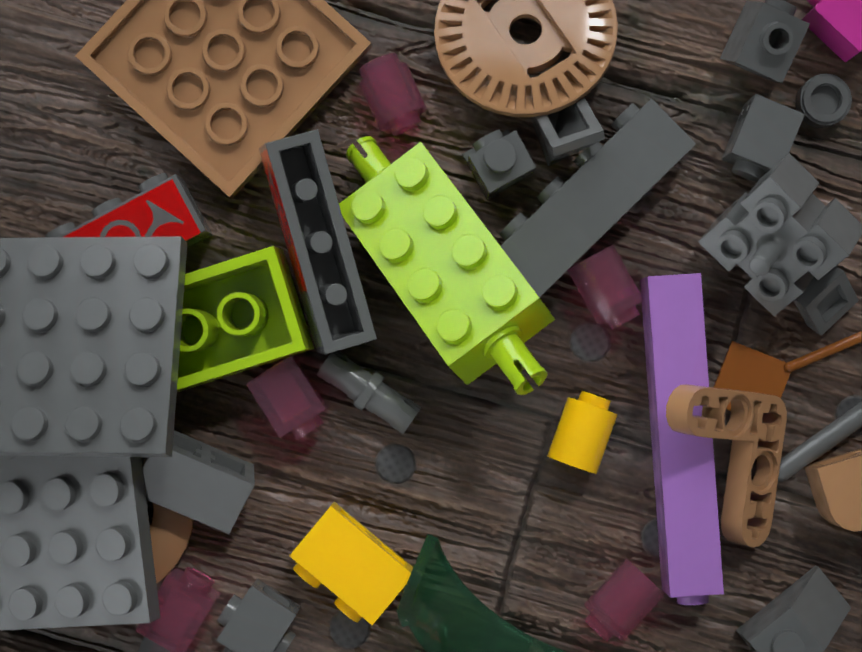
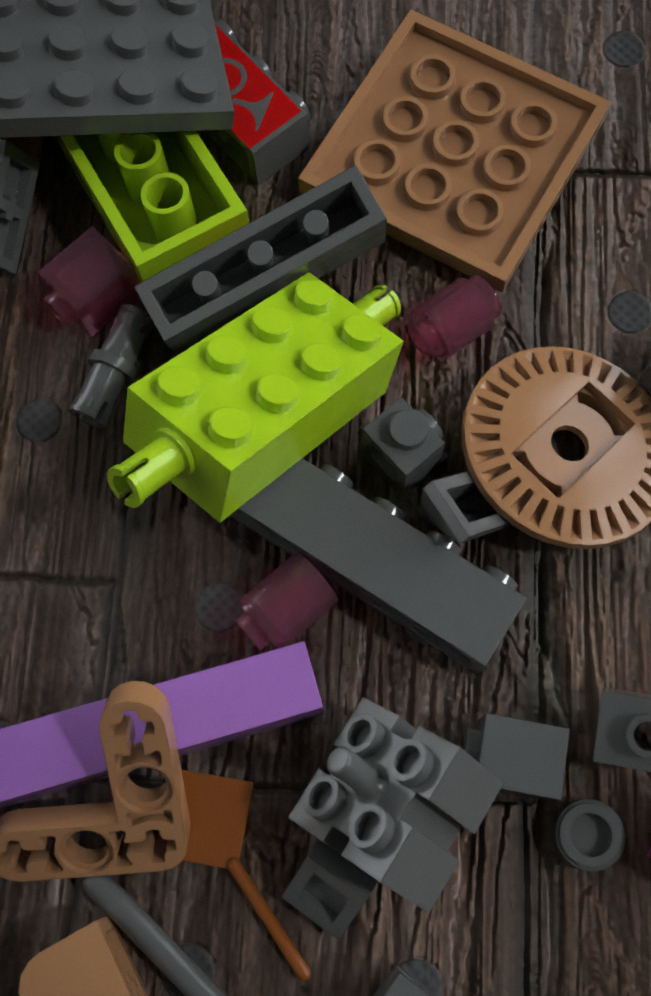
camera: 85 degrees right, 15 degrees down
(583, 432) = (101, 613): yellow brick -> none

